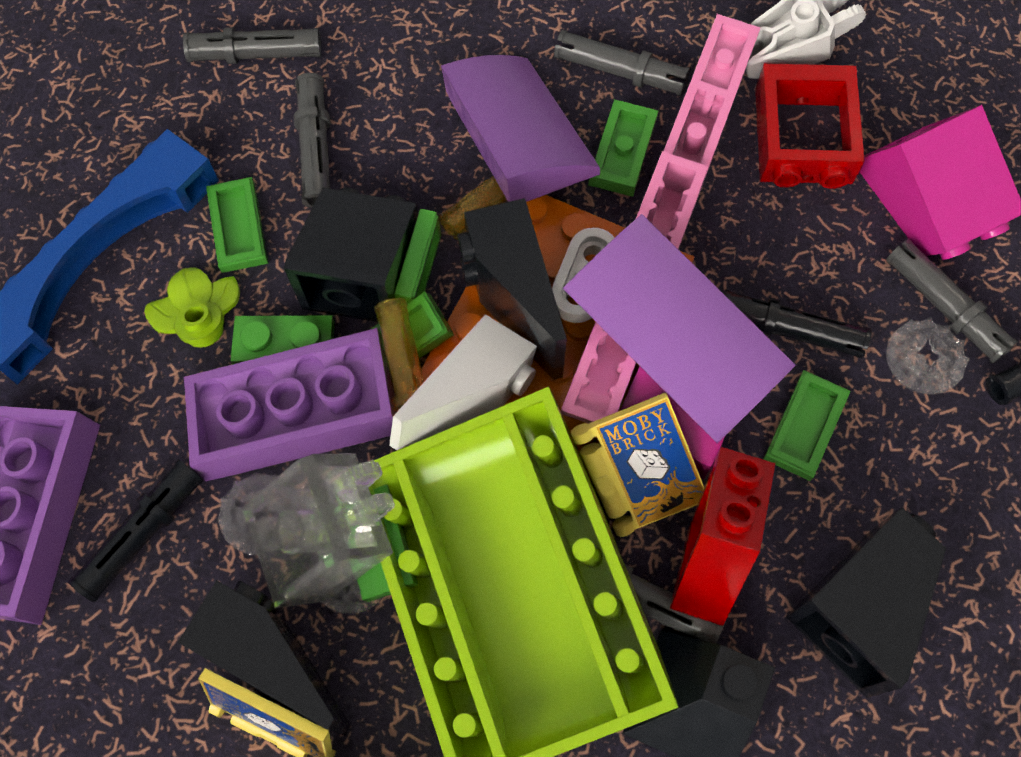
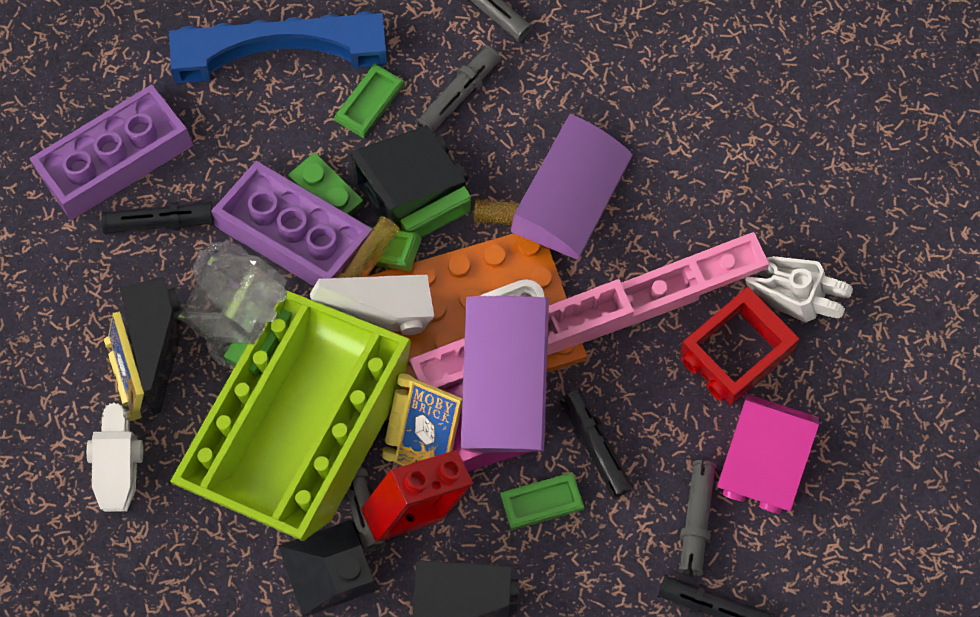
camera: 45 degrees right, 0 degrees up
(194, 307) = (302, 121): lime plate -> none
(511, 278) = (466, 261): black slope -> none
(623, 63) = (685, 220): dark grey pin -> none
(624, 147) = (621, 258): bright green plate -> none
(912, 368) = (646, 549): clear gear -> none

